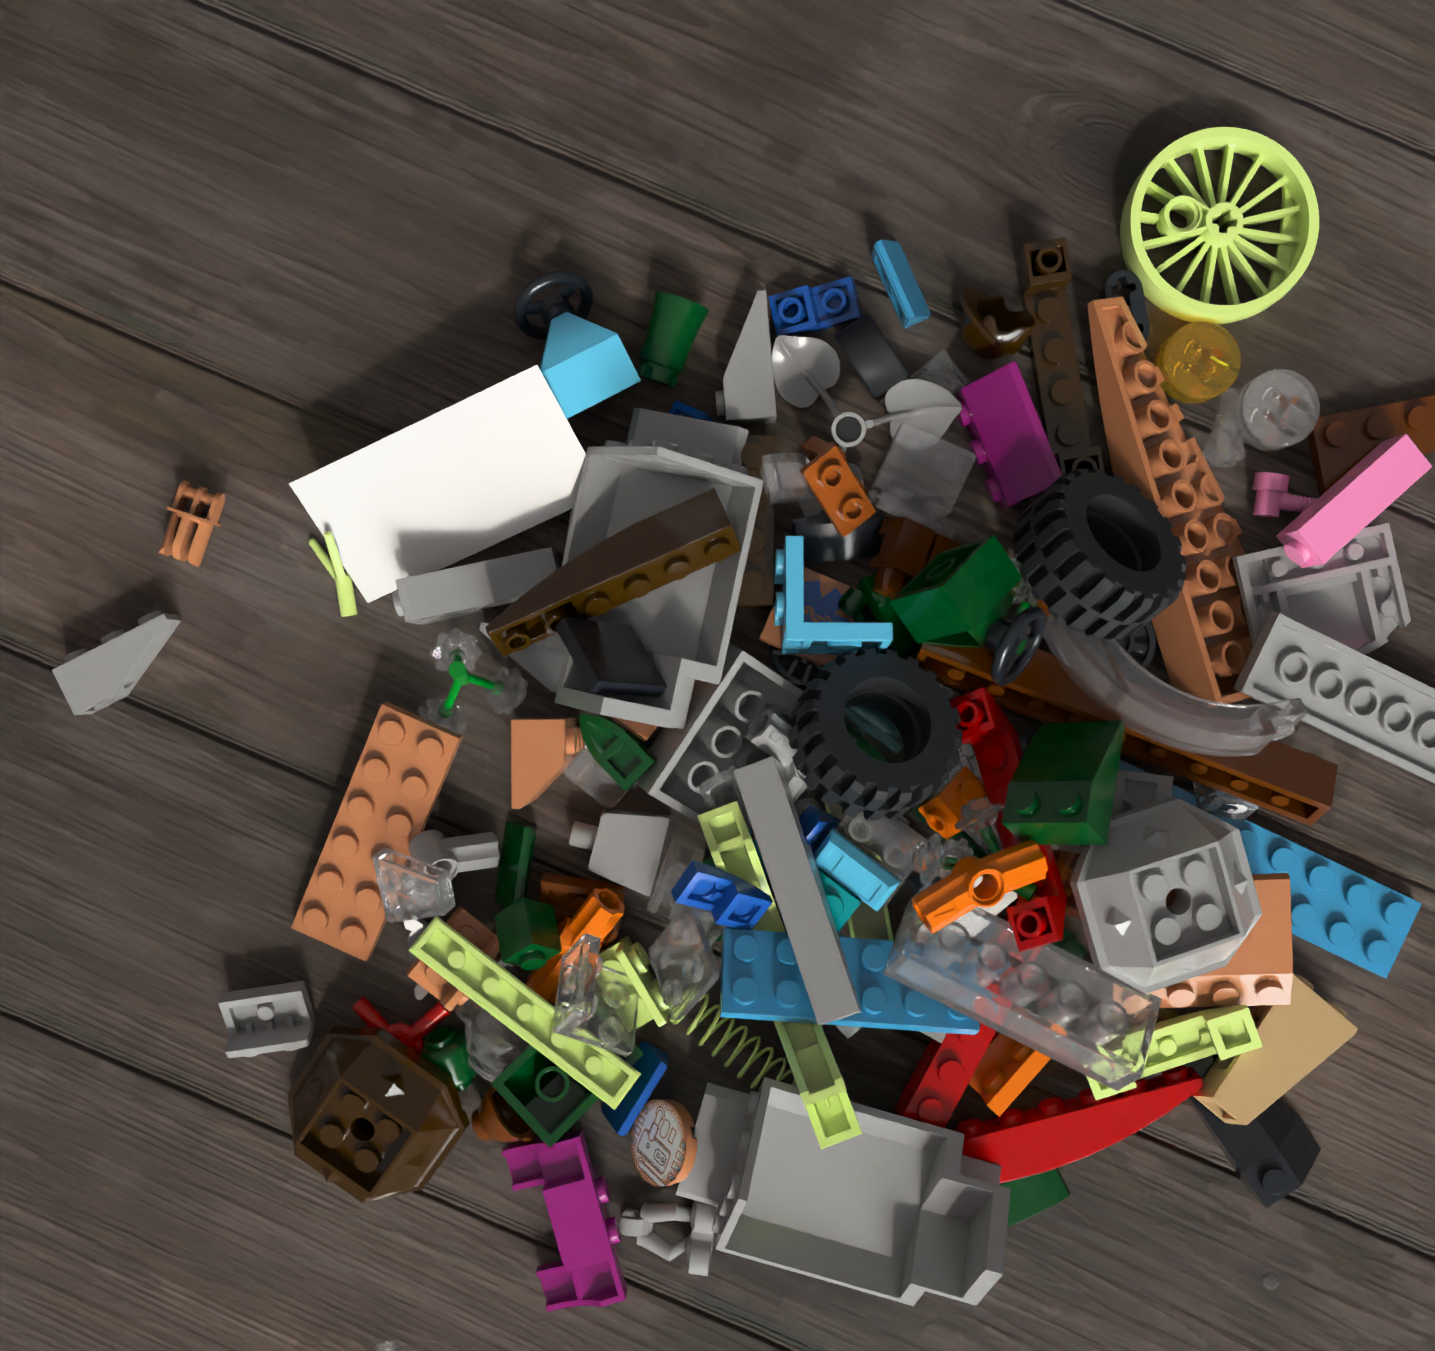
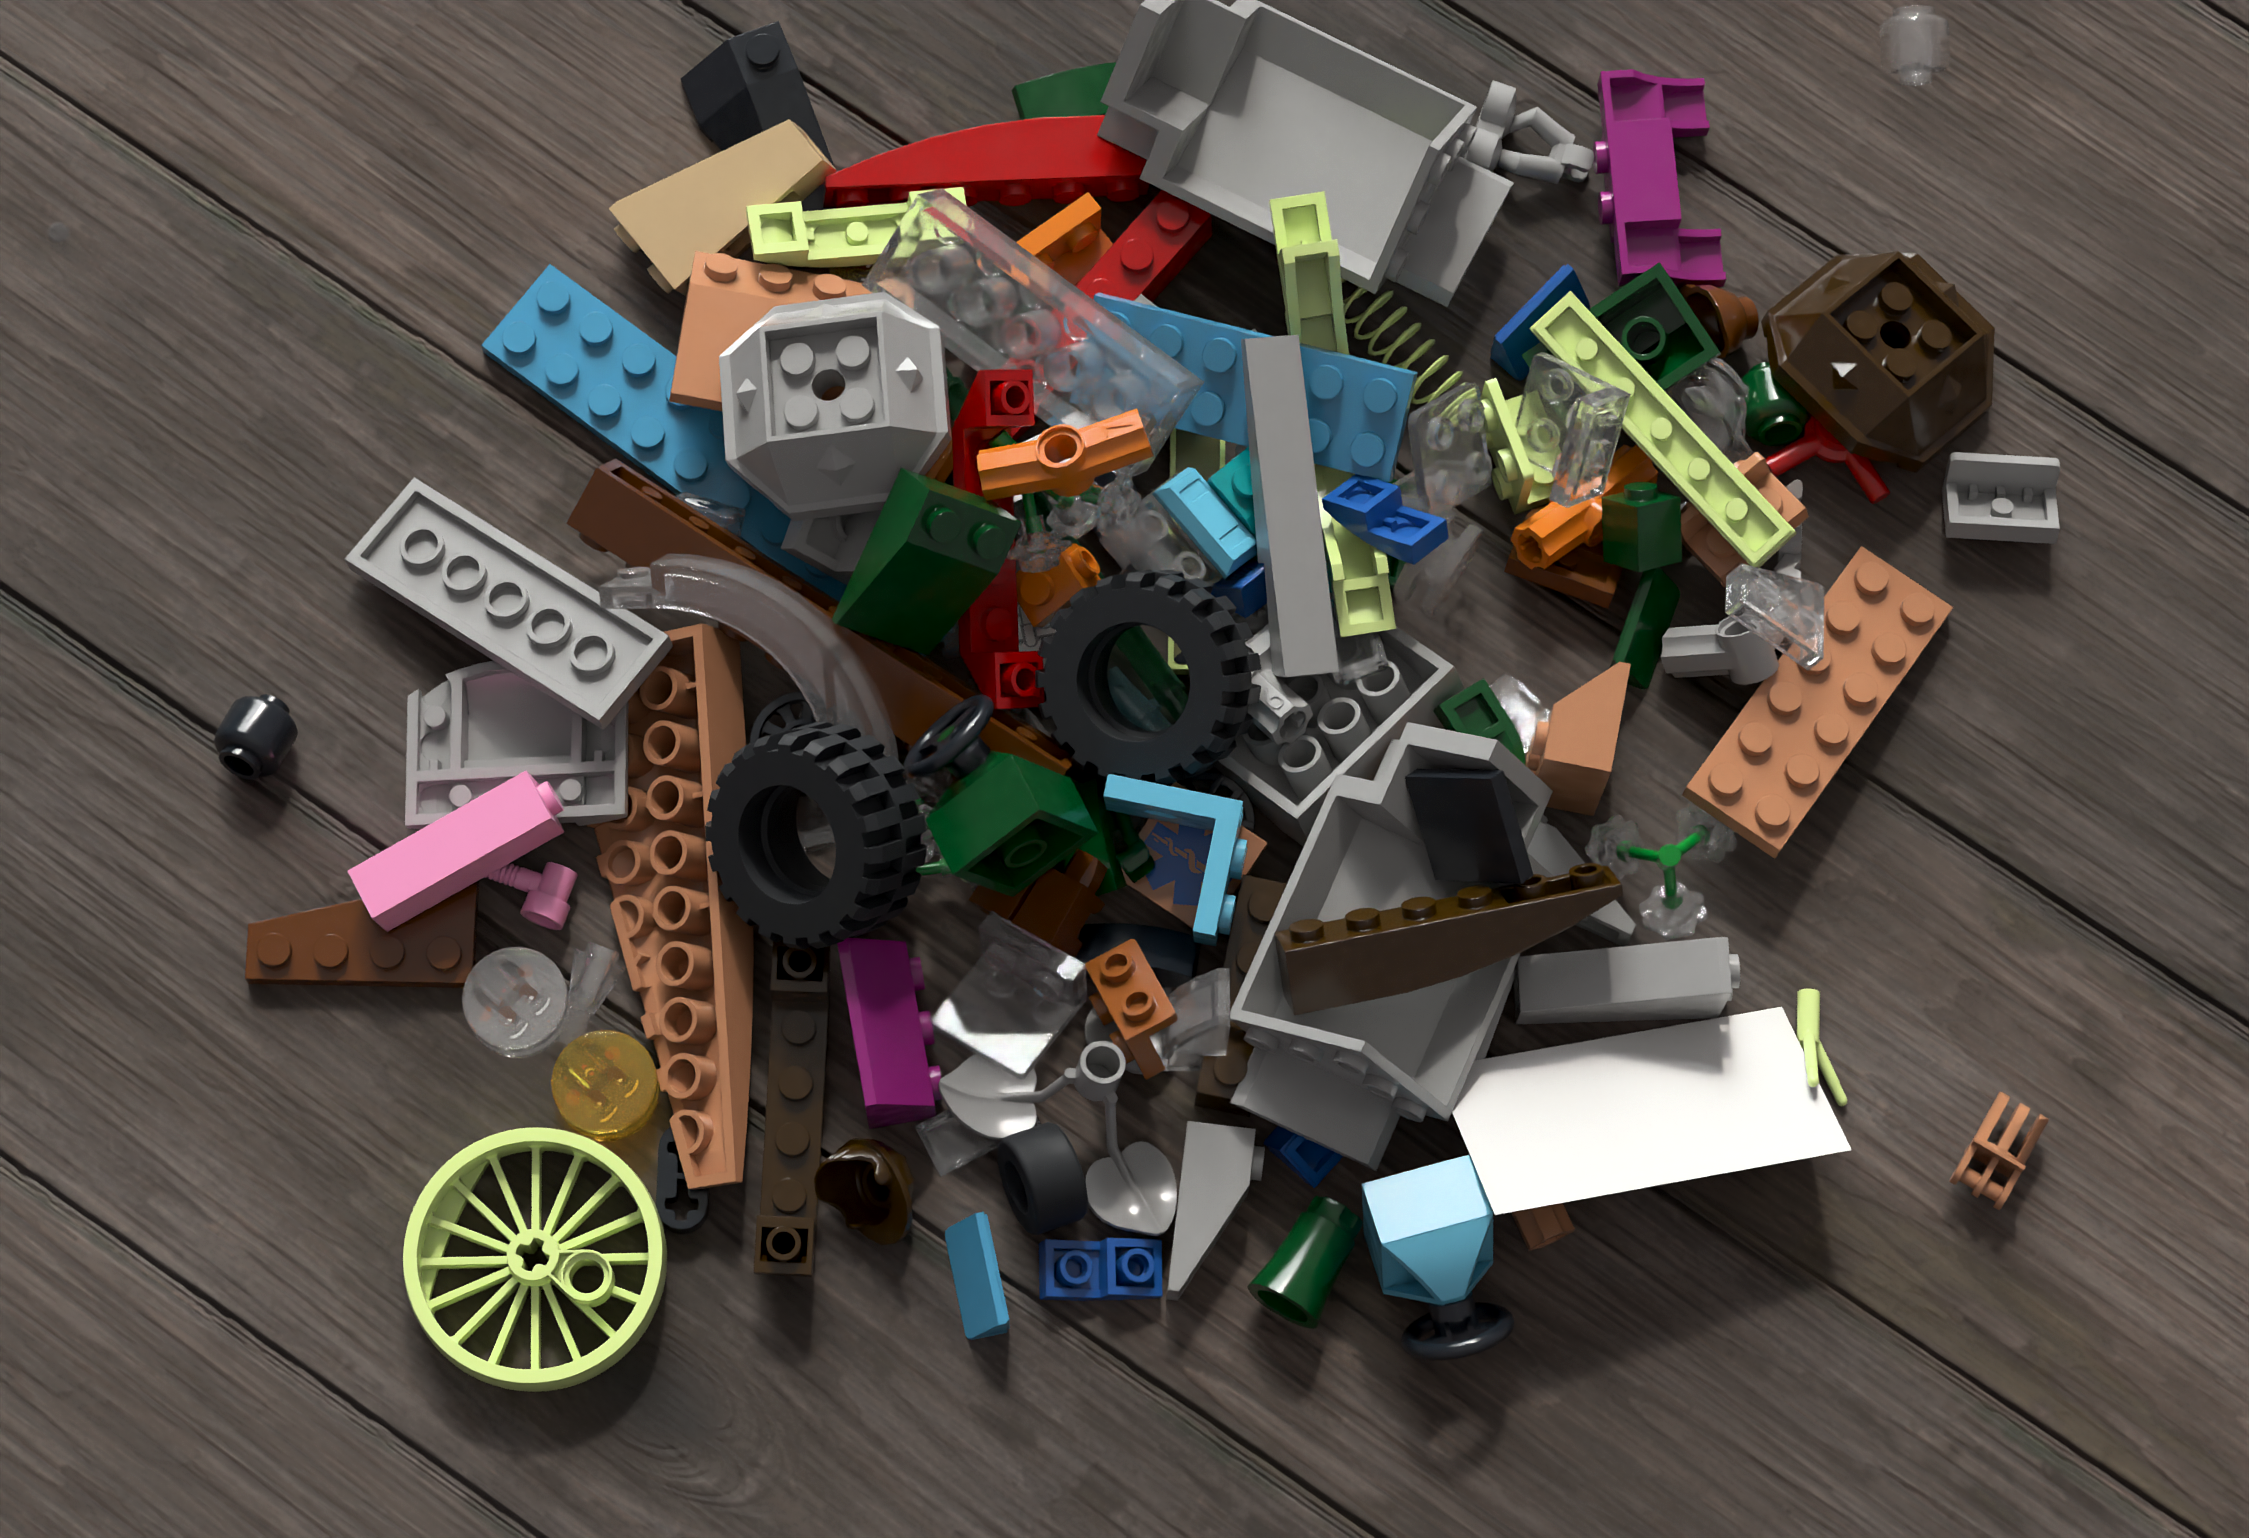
camera: 170 degrees left, 15 degrees down
(113, 669) = (2147, 978): light grey slope -> none
(624, 846) = (1495, 620): light grey torso -> none
(663, 1142) = (1517, 247): tile -> none

